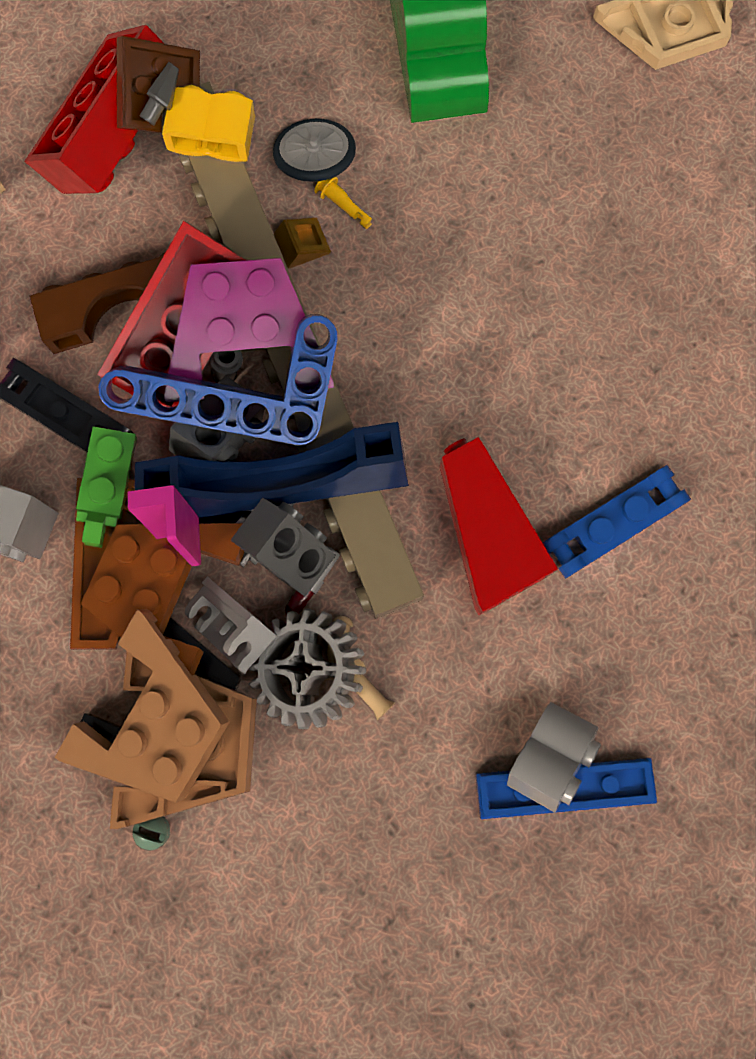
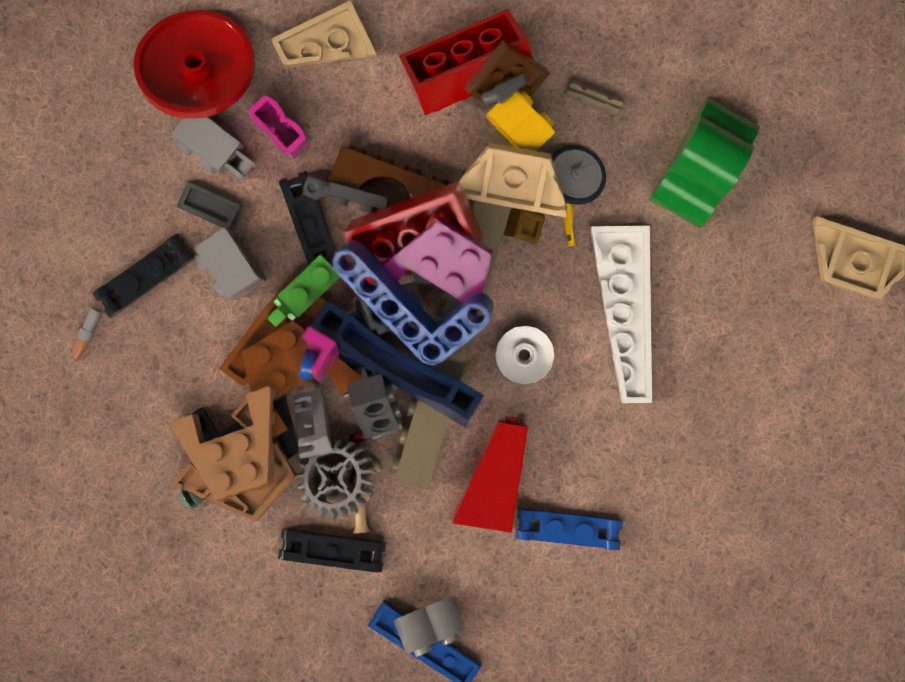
camera: 30 degrees right, 10 degrees up
(70, 346) = (342, 195): none -> dark grey hinge
(166, 552) = (307, 364): none -> blue tile
(248, 178) = (515, 180): none -> tan wing
(272, 64) = (595, 97): none -> dark tan axle
(367, 762) = (331, 550): none -> black plate
(414, 350) = (535, 366): none -> white dish
(462, 222) = (625, 287): none -> white wing

